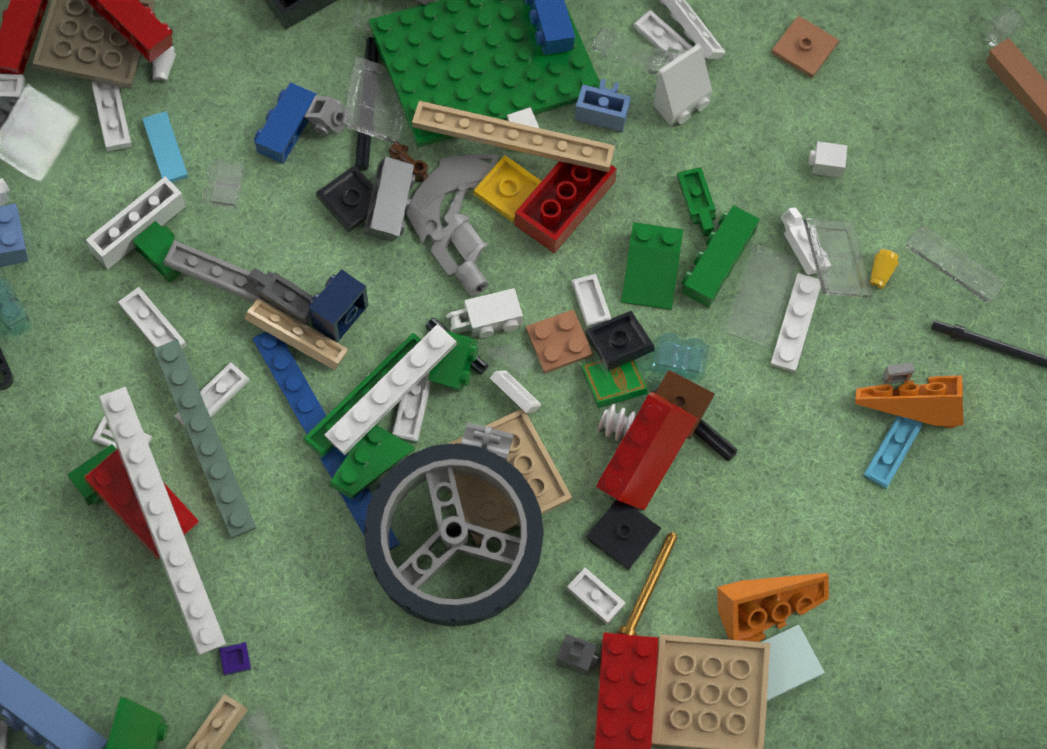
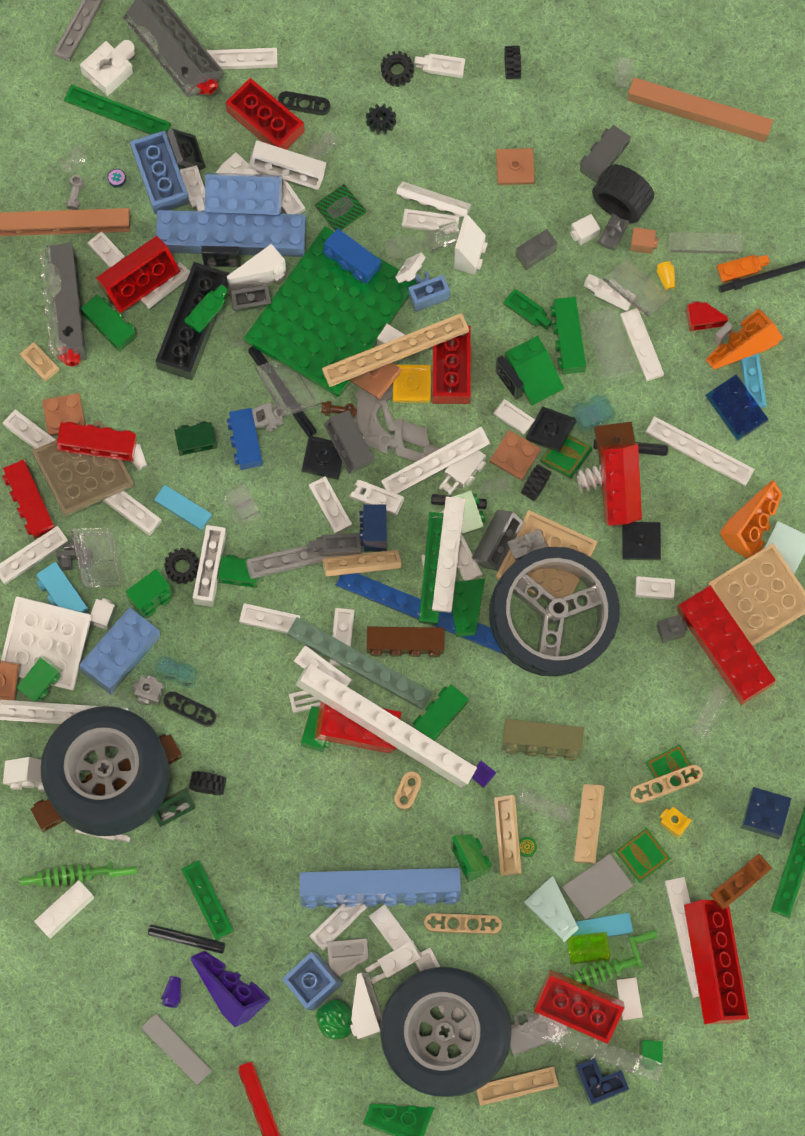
camera: 35 degrees left, 5 degrees up
(48, 205) = (149, 594): none -> green brick
(101, 194) = (178, 555): none -> black tyre
(138, 614) = (407, 791): none -> tan plate
(160, 417) = (308, 657): none -> white plate
(235, 86) = (195, 438): none -> dark green brick
(242, 557) = (441, 712): none -> green brick
(273, 450) = (405, 641): none -> reddish brown brick
(316, 252) = (330, 505): none -> white plate
(327, 667) = (542, 739): none -> olive brick
(371, 275) = (377, 495): none -> white plate
(450, 418) = (494, 544): none -> dark grey brick
(462, 283) = (436, 461): none -> white plate
(474, 157) = (377, 380): none -> nougat plate
(515, 391) = (515, 503): white tile -> none
(554, 383) = (536, 482): none -> black tyre
(611, 69) = (410, 267): none -> white plate
(617, 252) = (509, 377): none -> black plate
(649, 586) = (679, 561): pearl gold bar -> none
(757, 143) = (536, 249): none -> dark grey brick
(770, 484) = (699, 451): none -> white tile
(850, 465) = (736, 407): none -> clear blue plate
(858, 182) = (613, 232): none -> dark grey hips
(885, 214) = (643, 240): none -> nougat brick
(890, 340) = (704, 316): none -> red slope
(899, 146) = (623, 193): none -> black tyre
(914, 96) = (604, 153): none -> dark grey brick
(977, 319) = (741, 267): none -> orange hinge

